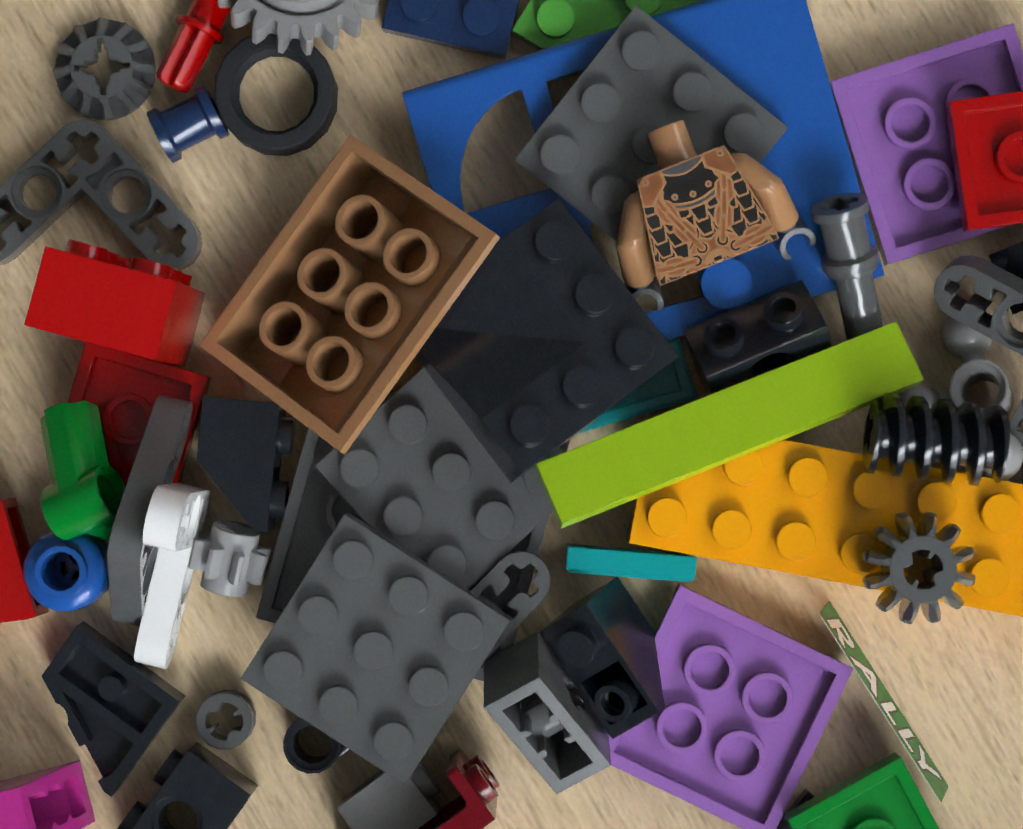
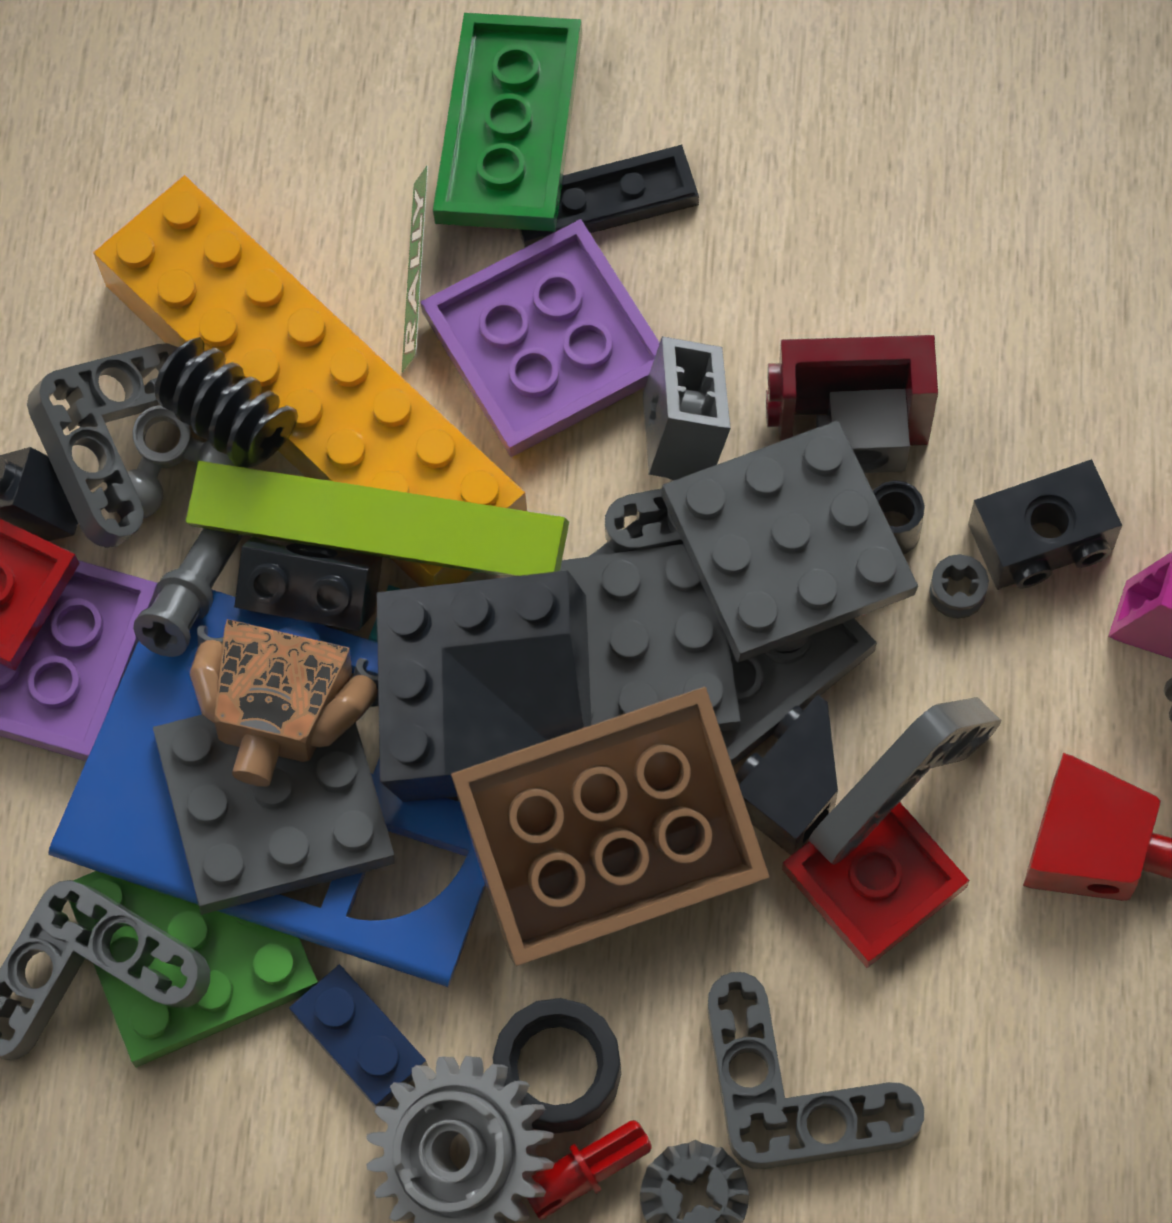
camera: 140 degrees left, 20 degrees down
(56, 587) = (1010, 779): blue head -> none
(83, 484) = (948, 820): green piece -> none
(103, 302) = (815, 945): red brick -> none
(109, 702) = (1048, 658): black wing -> none
(171, 524) = (894, 714): white beam -> none
(187, 123) = (651, 1091): dark blue bush -> none
(229, 558) = (866, 702): light grey gear -> none
(610, 656) = (604, 426): black slope -> none
(630, 563) = (542, 491): teal tile -> none
(937, 579) = (311, 317): dark grey gear -> none

